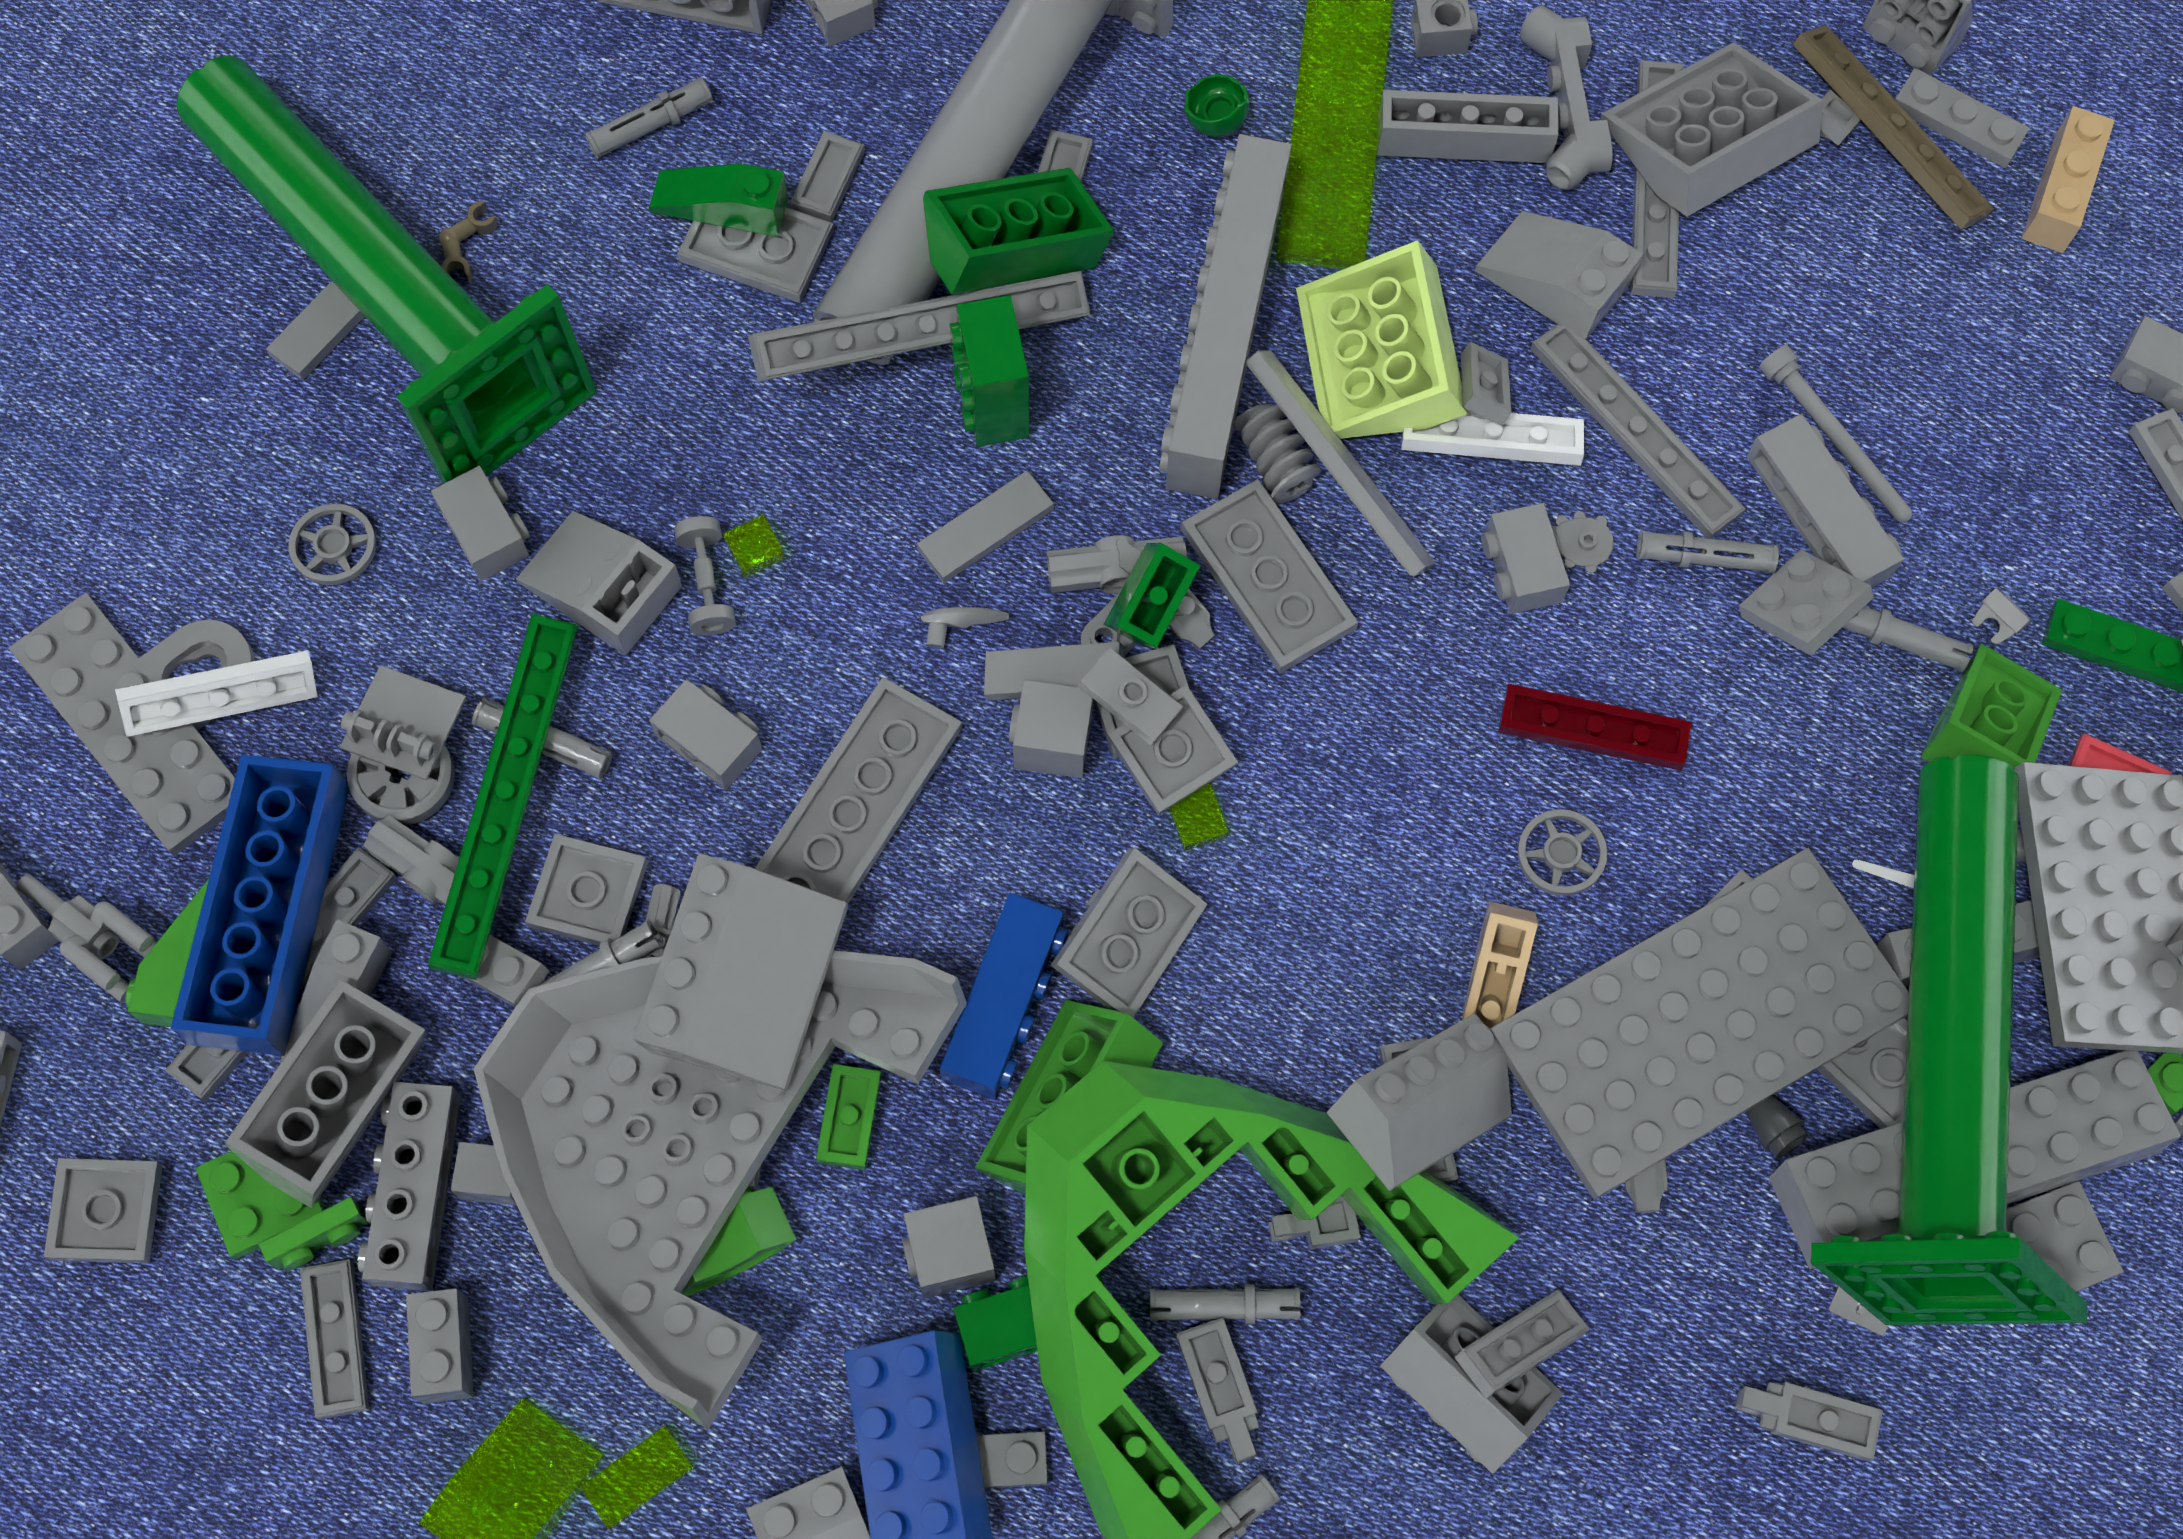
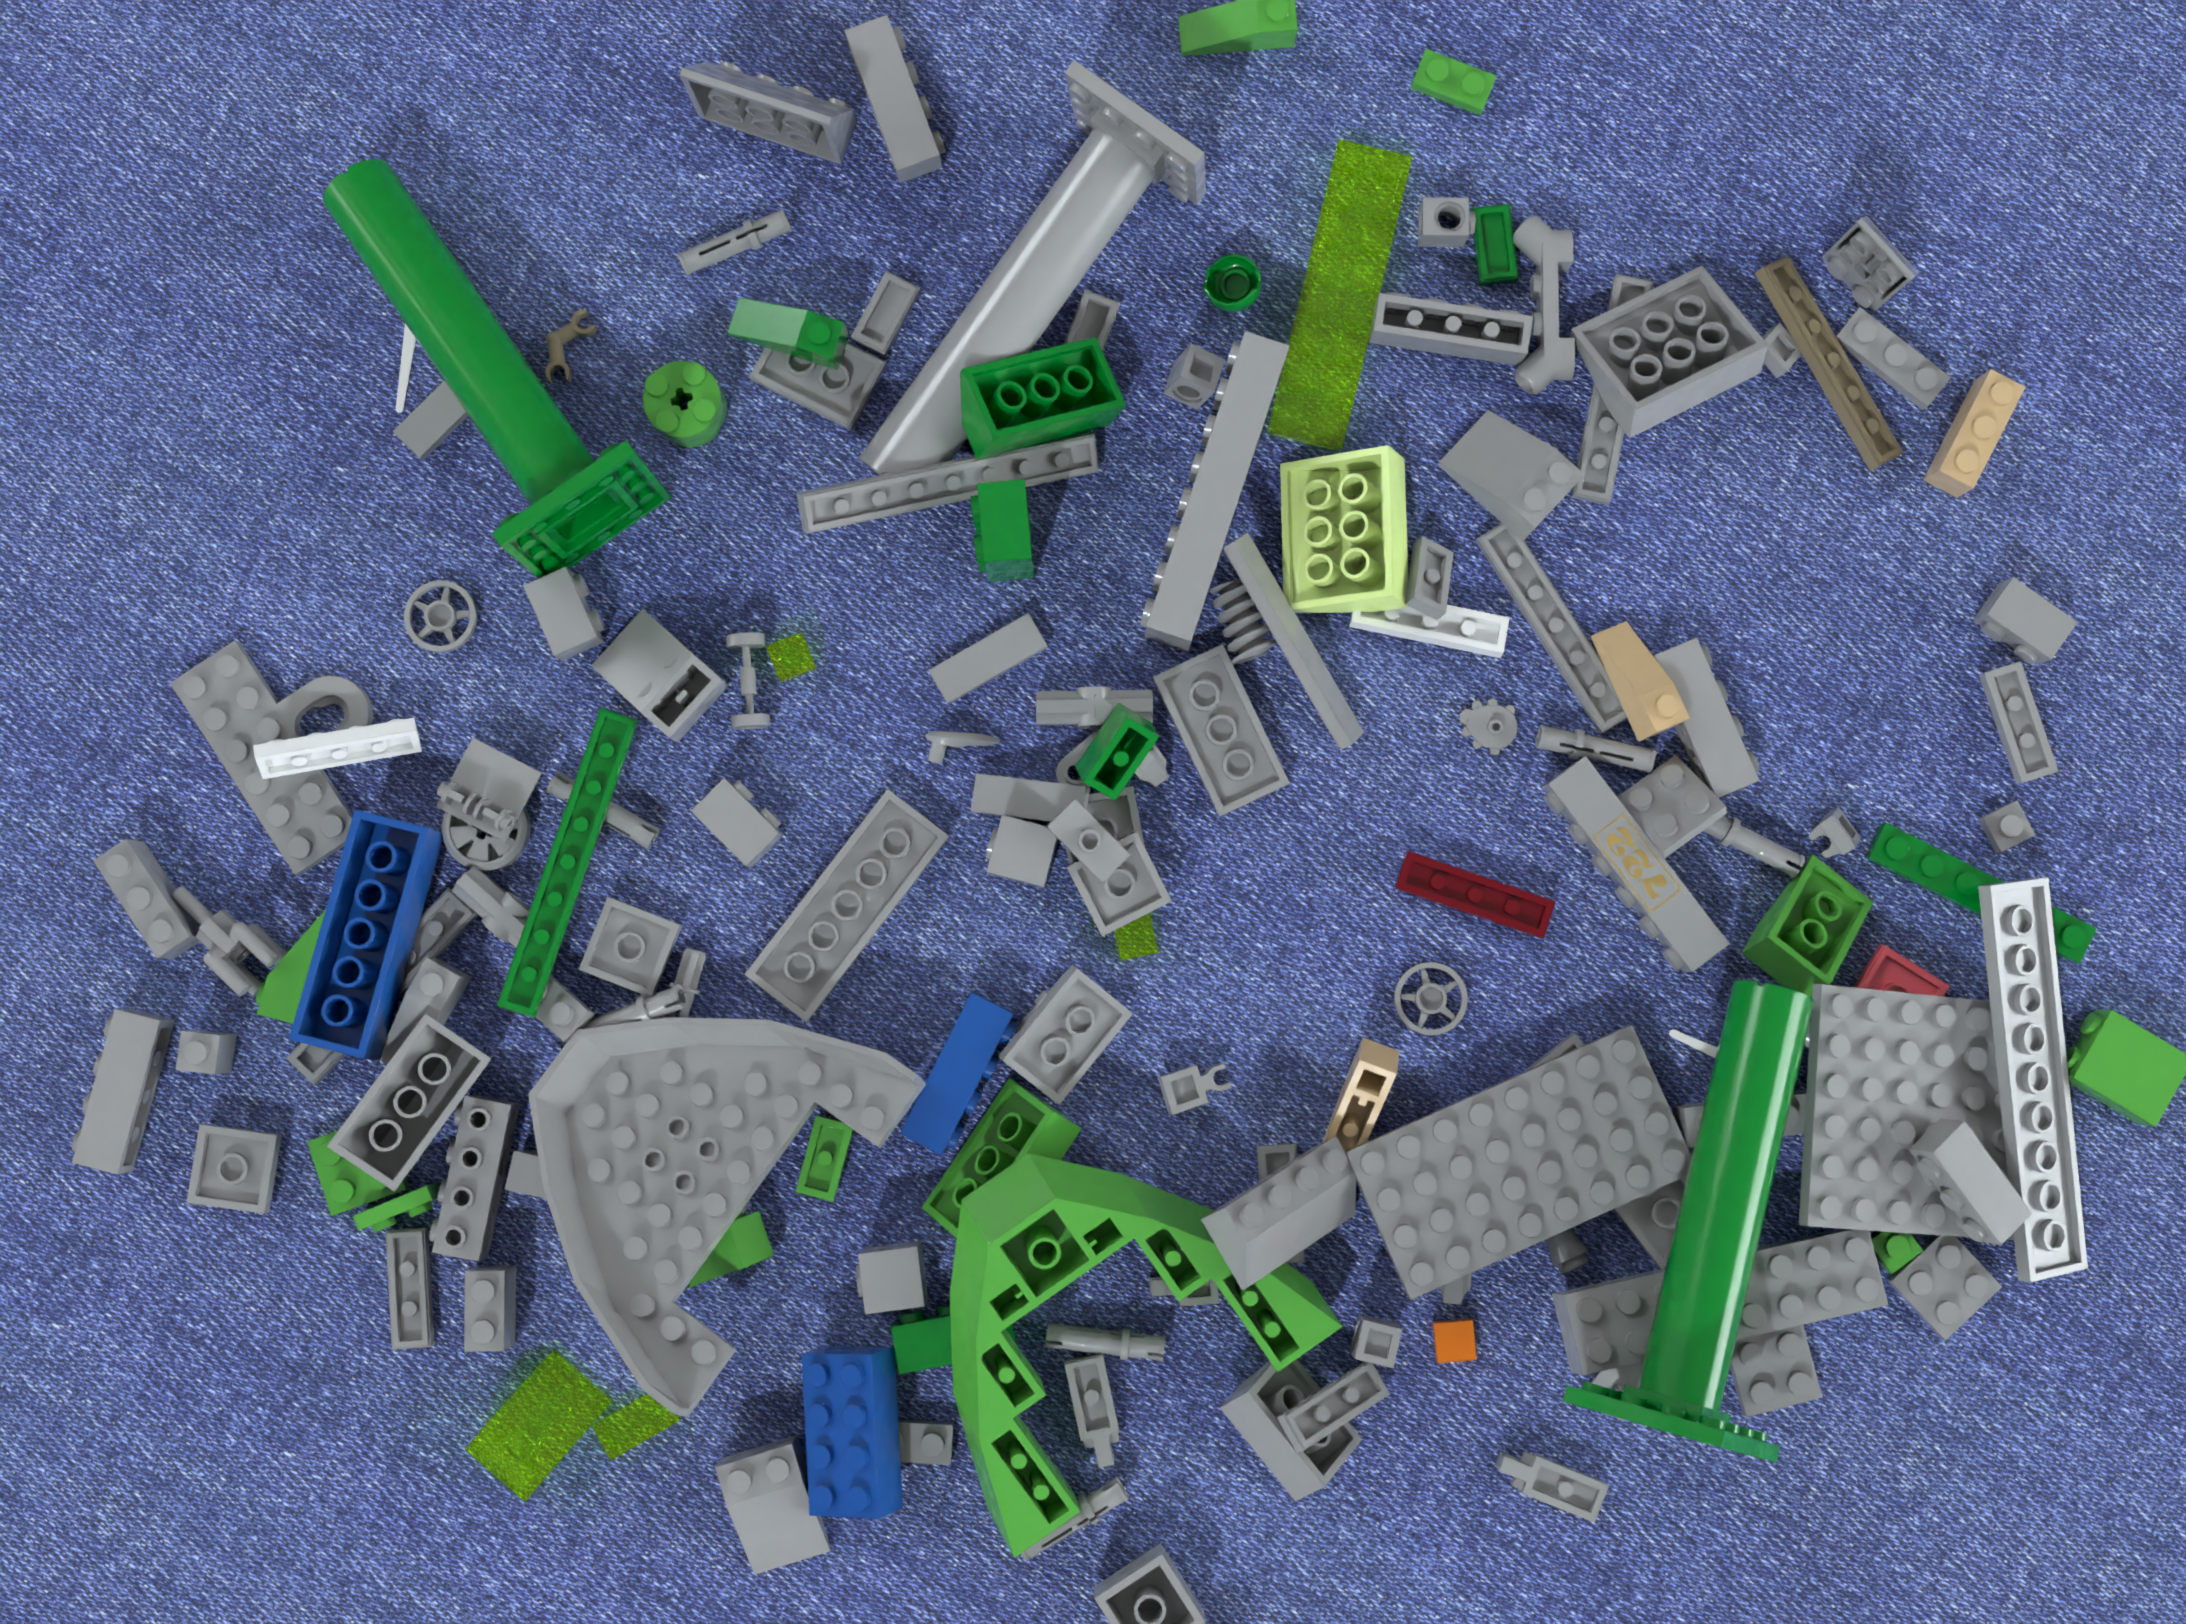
camera: 10 degrees right, 15 degrees up
(64, 1069) = (206, 1052): none -> light grey brick
(280, 254) = (405, 367): none -> white sticker
(606, 284) = (664, 396): none -> bright green brick
(741, 972) = (745, 1048): light grey slope -> none
(1186, 200) = (1194, 376): none -> light grey brick
(1286, 985) = (1187, 1088): none -> light grey plate
(1502, 47) = (1494, 245): none -> green tile
(1525, 558) = (1439, 739): light grey brick -> none
(1562, 1258) = (1375, 1340): none -> light grey brick
(1658, 1256) = (1454, 1340): none -> orange tile
(1748, 472) = (1639, 682): none -> tan slope
(1776, 674) = (1634, 865): none -> light grey brick
(1783, 368) = (1691, 587): light grey piece -> none

